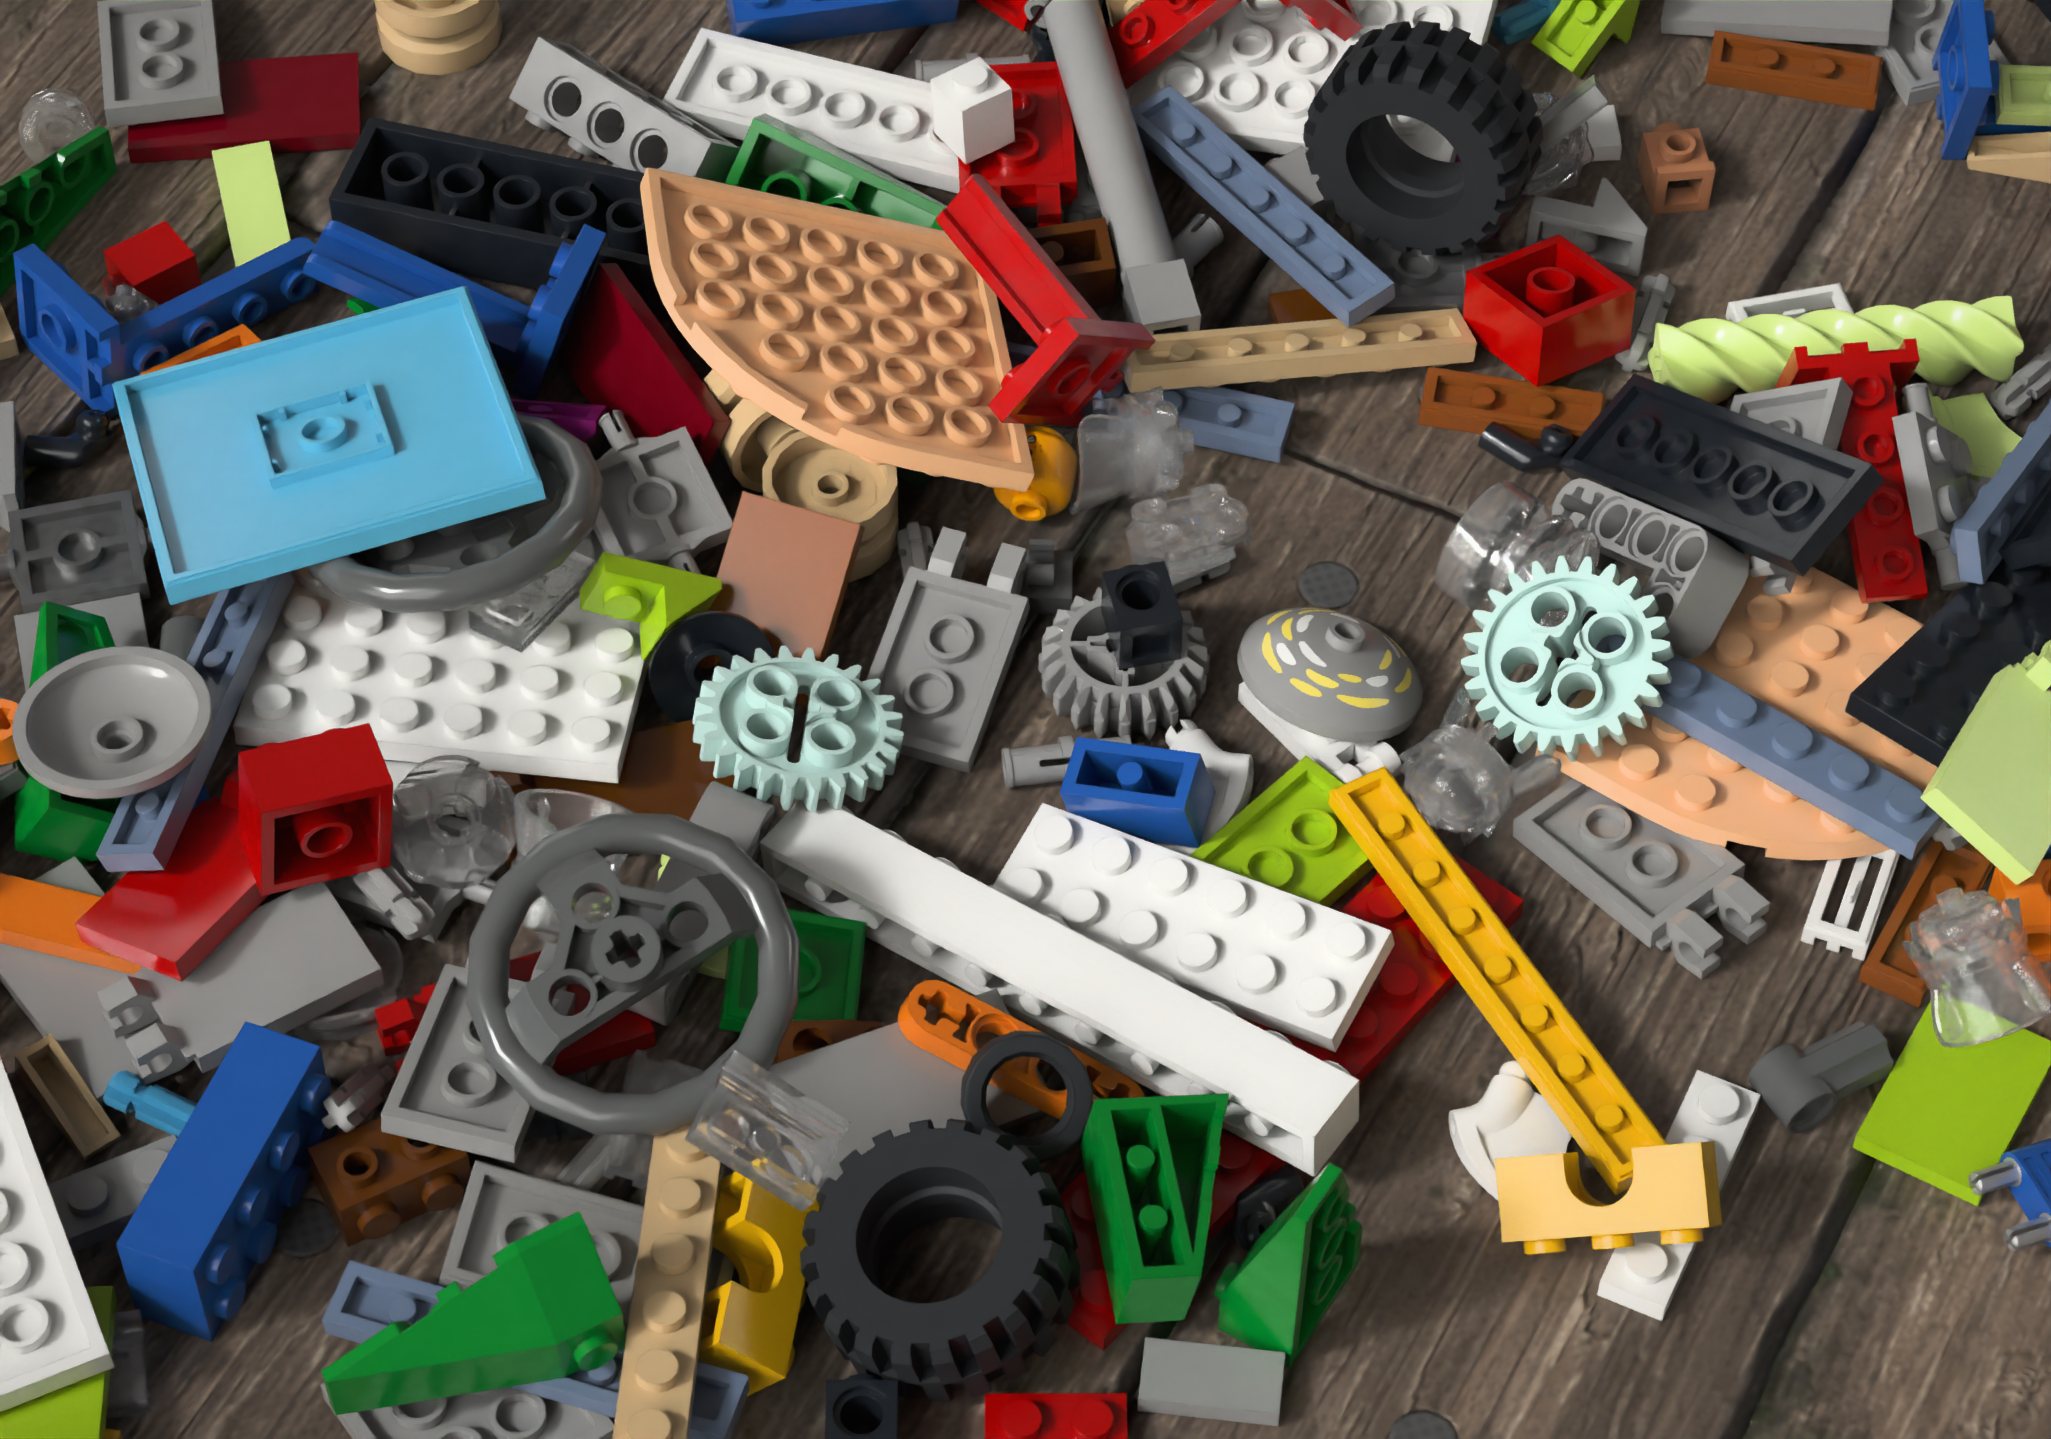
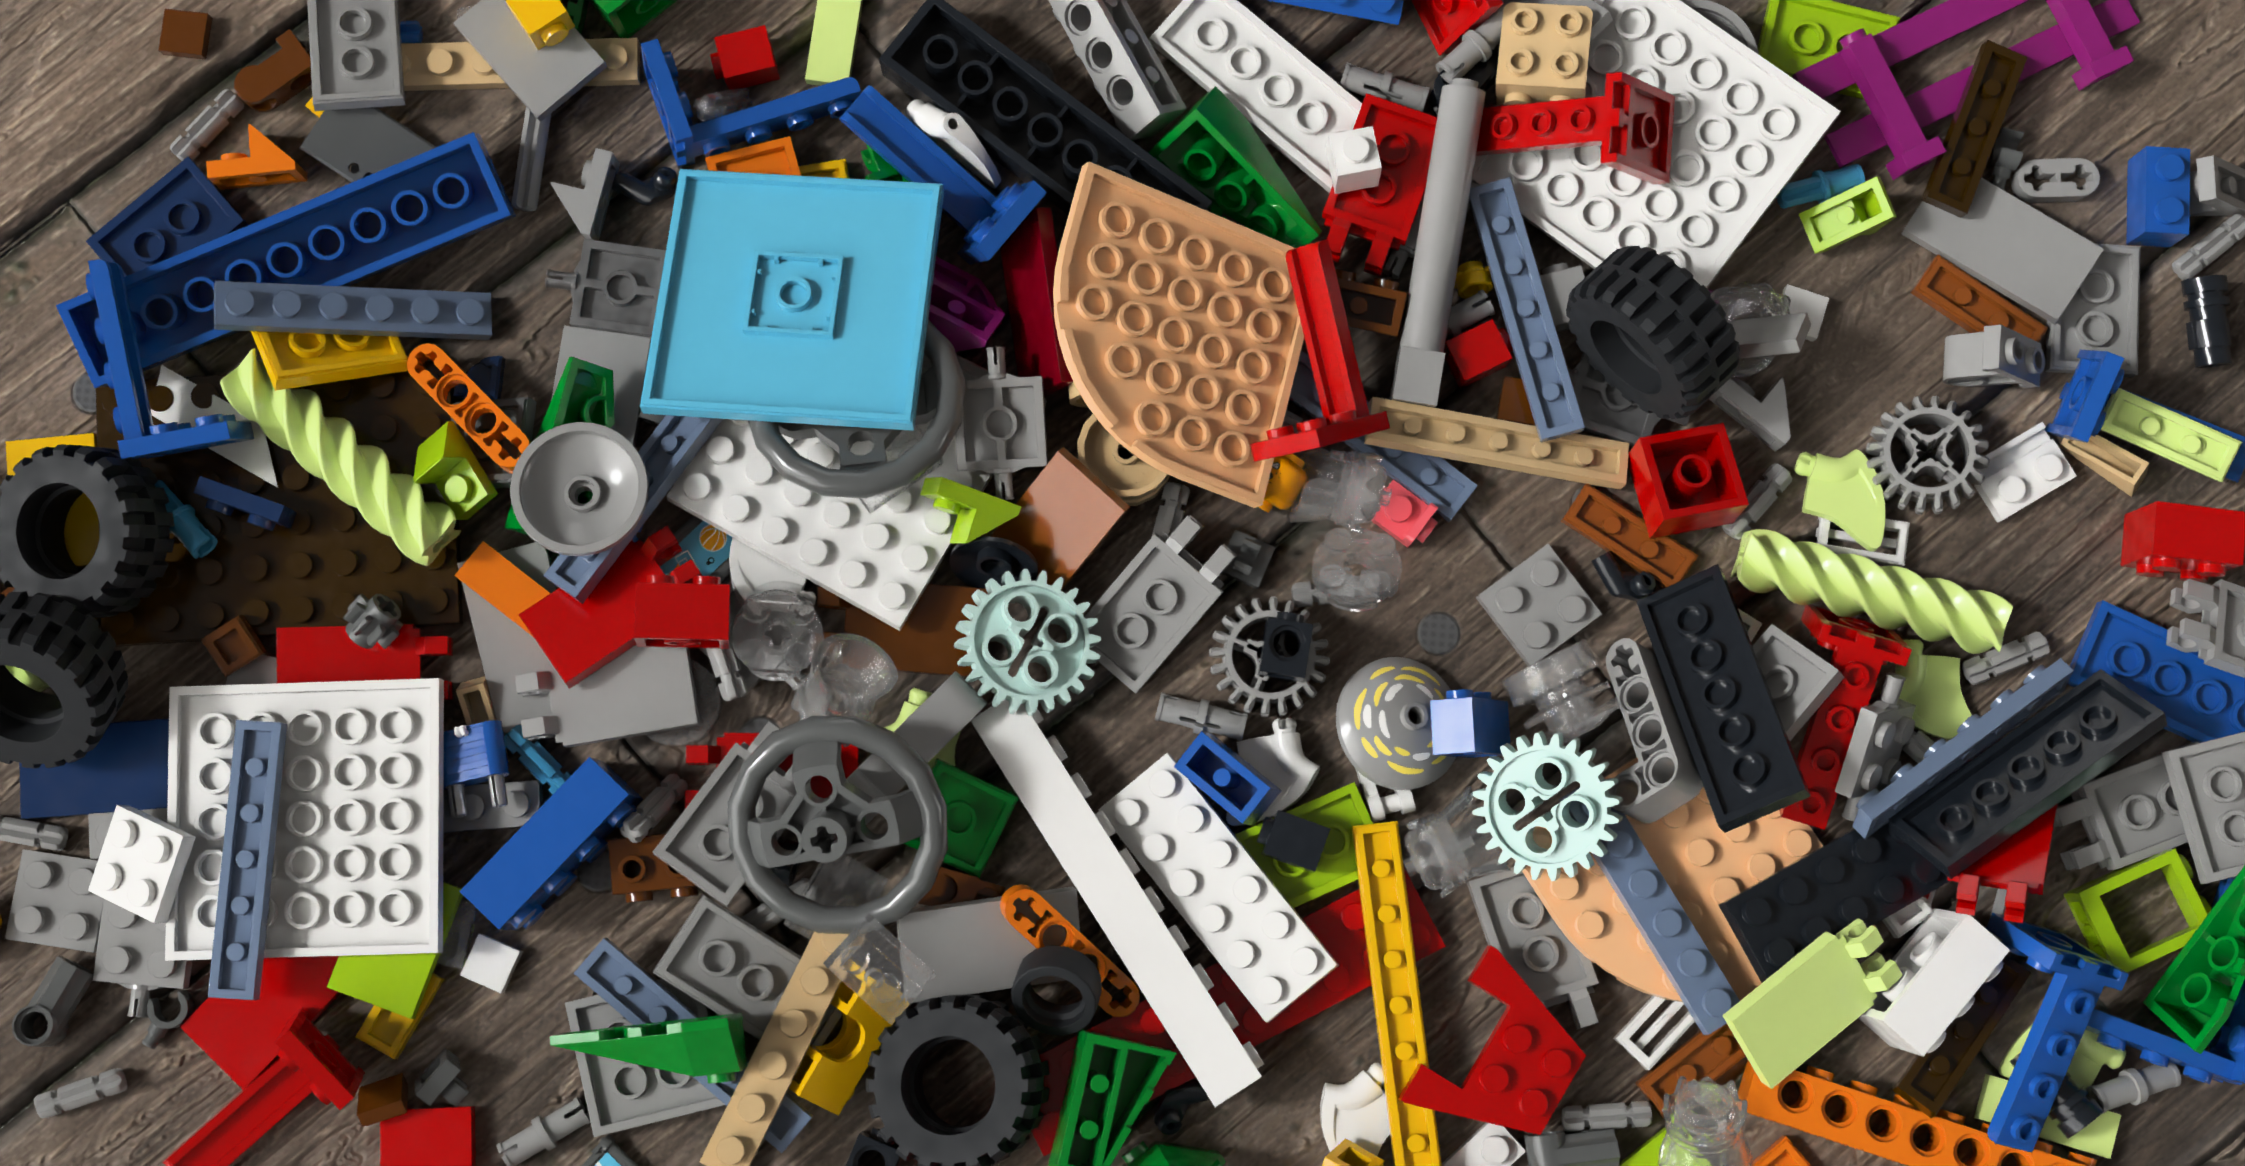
camera: 20 degrees right, 30 degrees up
(73, 1121) = (473, 757): none -> blue piece
(189, 1388) = (491, 963): none -> white tile
(466, 249) = (955, 138): none -> white arm
(1180, 209) = (1472, 278): none -> yellow plate
(1224, 465) = (1406, 516): none -> coral bracket
(1227, 278) = (1477, 353): none -> red brick
(1260, 827) = (1293, 840): none -> black brick
(1419, 629) = (1469, 724): none -> brick
(1422, 502) = (1538, 605): none -> light grey plate
(1675, 155) = (1834, 385): nougat brick -> none
(1697, 977) = (1519, 1068): none -> red wing
(1744, 275) = (1844, 495): none -> yellowish green arm
(1819, 204) = (1942, 469): none -> light grey gear
(1835, 89) = (1992, 358): none -> light grey pin
(1882, 1005) = (1606, 1116): none -> light grey axle
(1938, 201) = (2023, 472): none -> white plate

